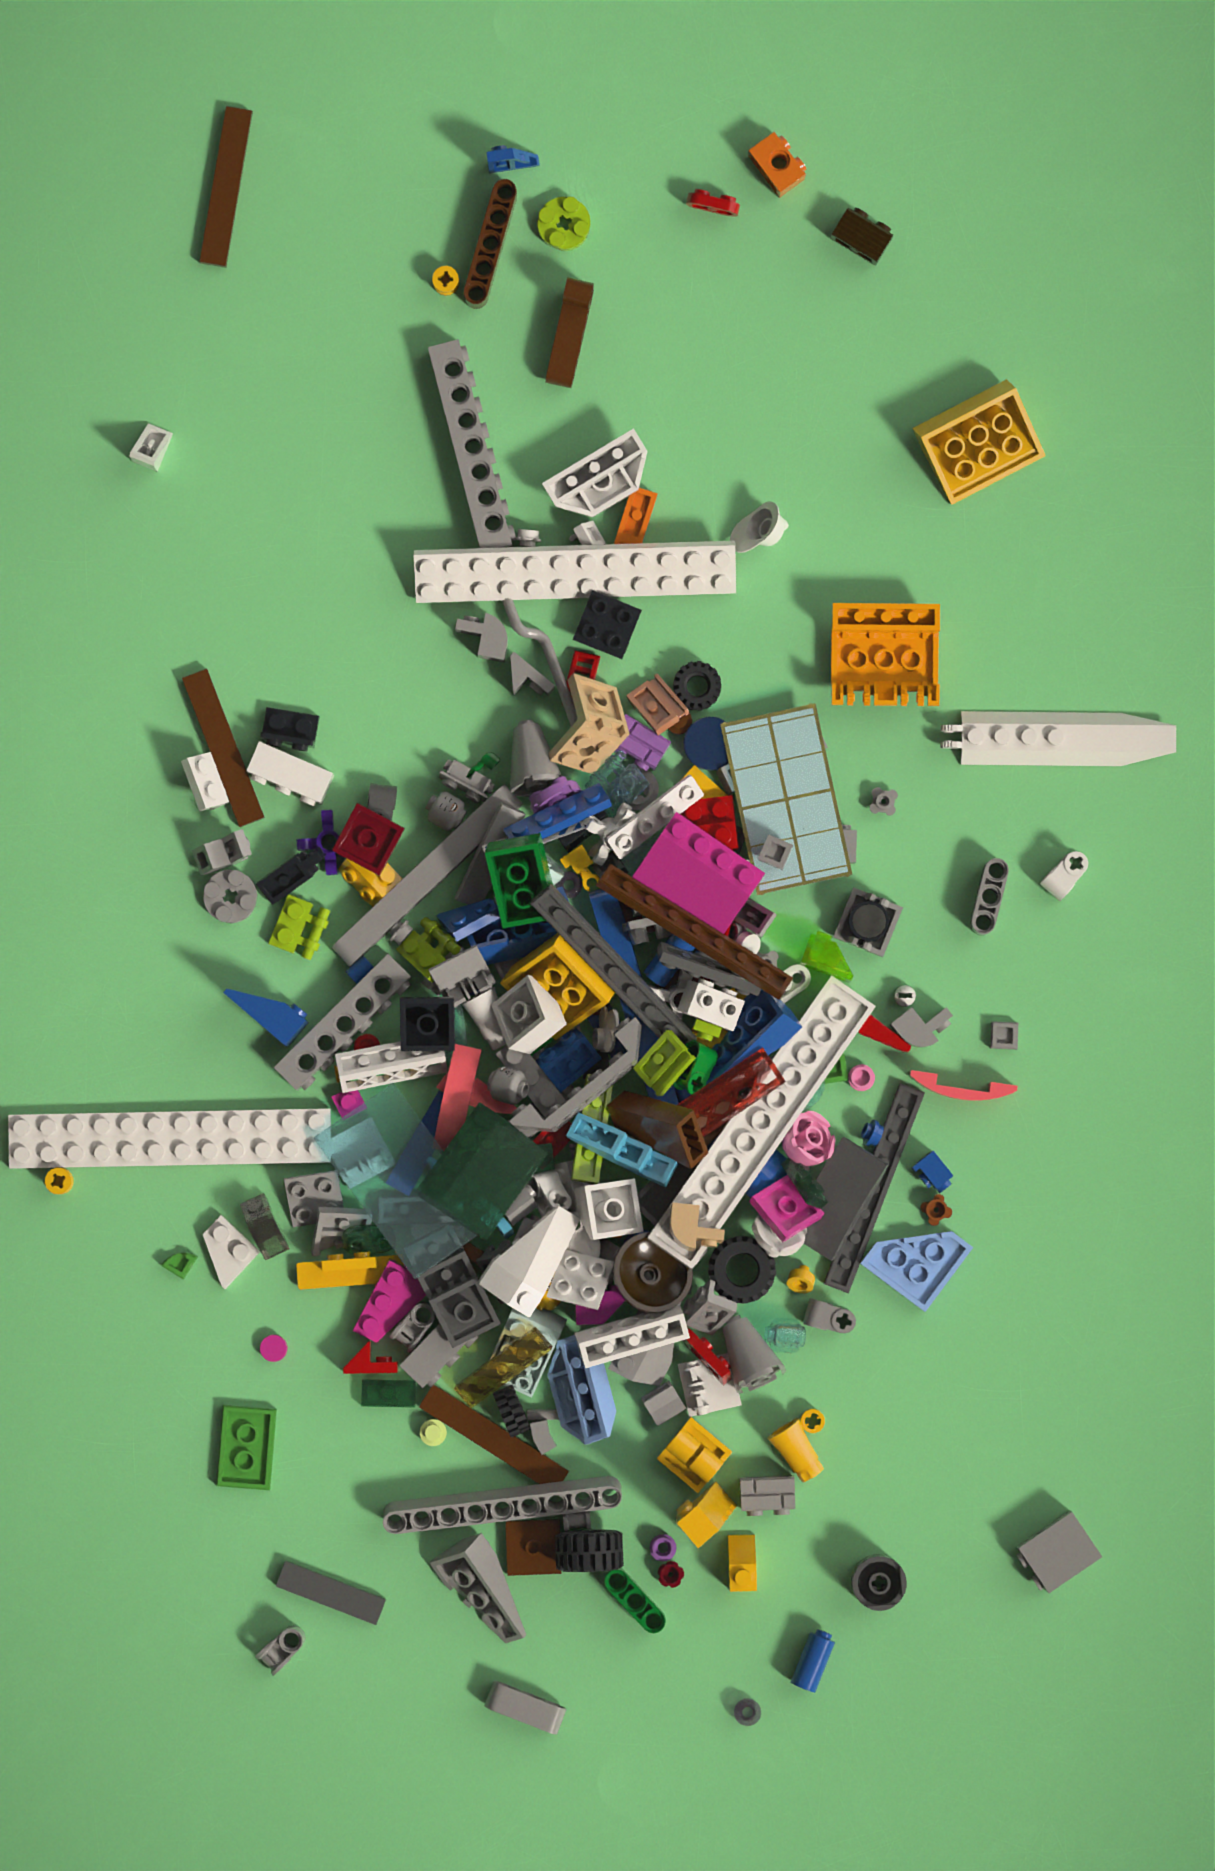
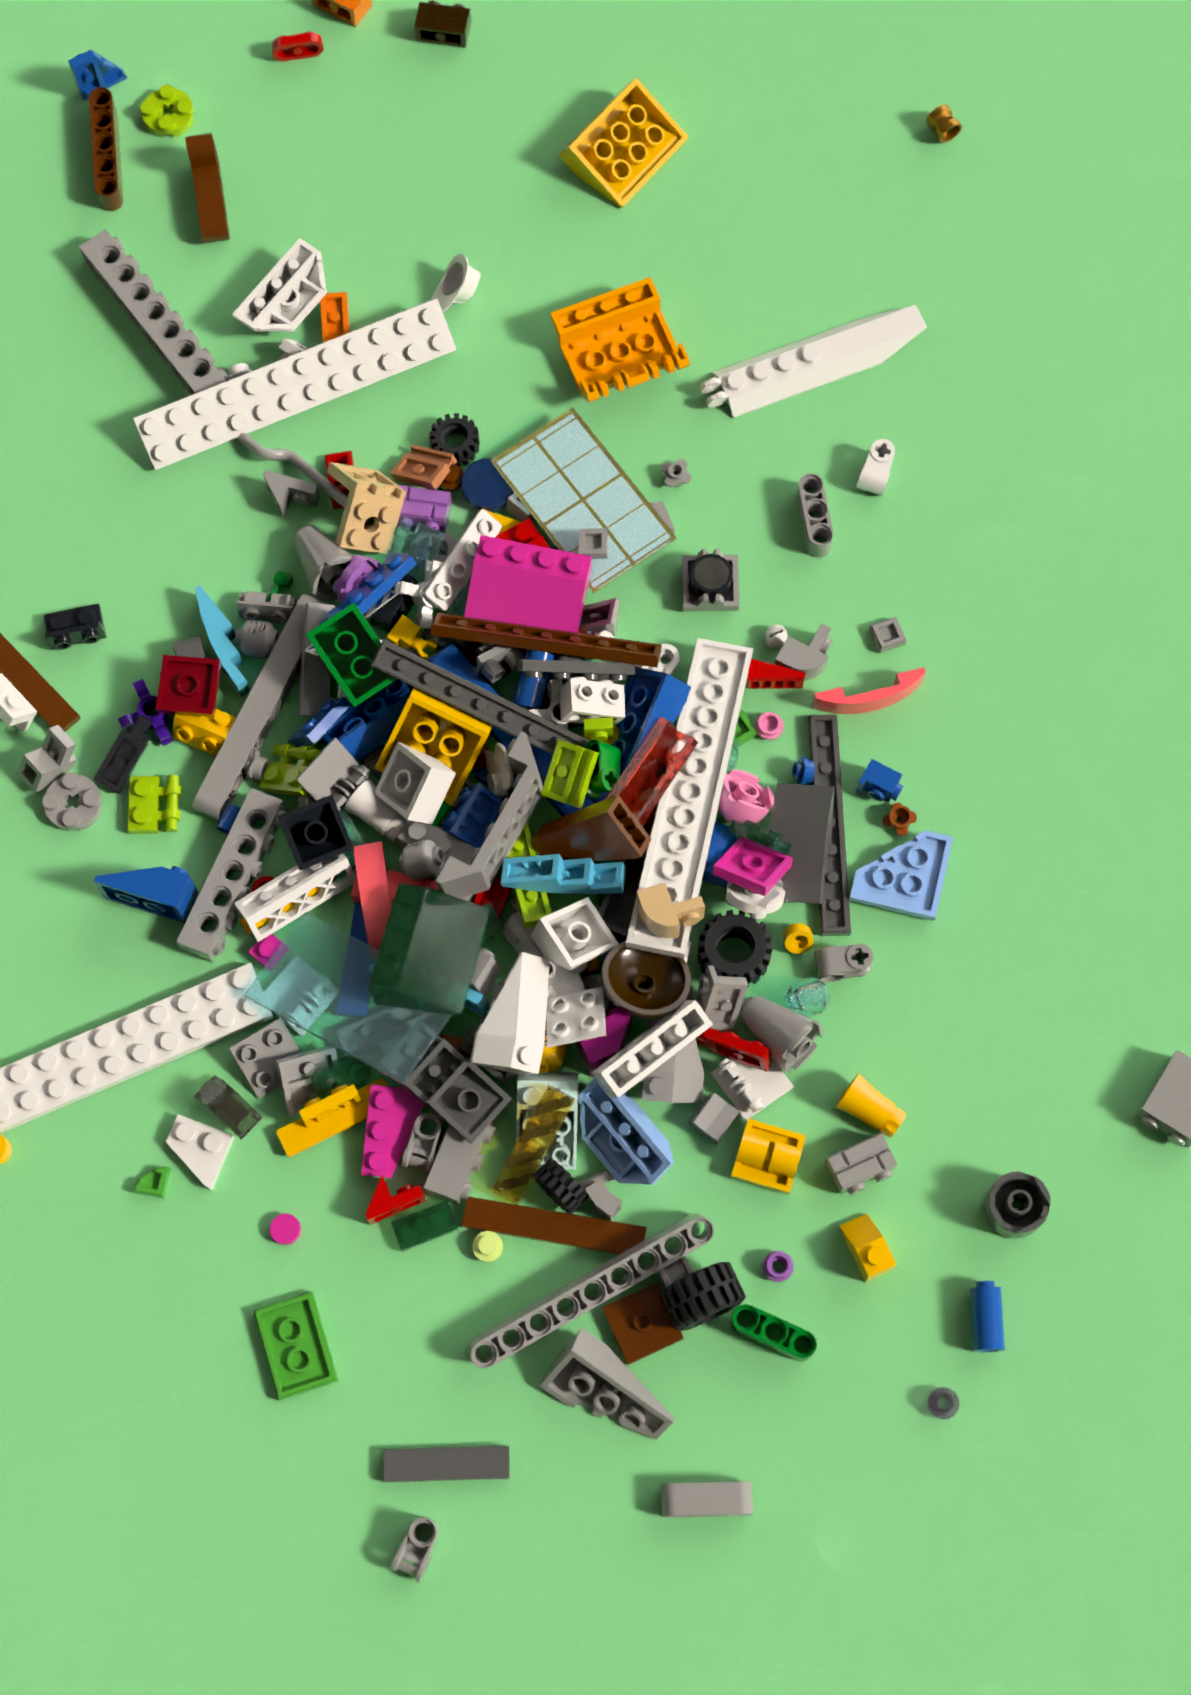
camera: 25 degrees left, 15 degrees down
(289, 774) = (89, 664): white brick -> none
(413, 789) = (220, 634): none -> medium azure slope
(445, 285) = (80, 198): yellow wheel -> none
(492, 633) = (237, 467): light grey brick -> none
(549, 1191) = (506, 949): white piece -> none
(607, 624) = (346, 416): black hinge -> none
(675, 1580) = (805, 1287): dark red plate -> none
(705, 1514) = (803, 1210): yellow wedge -> none
(808, 1413) = (878, 1064): yellow bush -> none
(825, 957) = (683, 626): clear neon green slope -> none

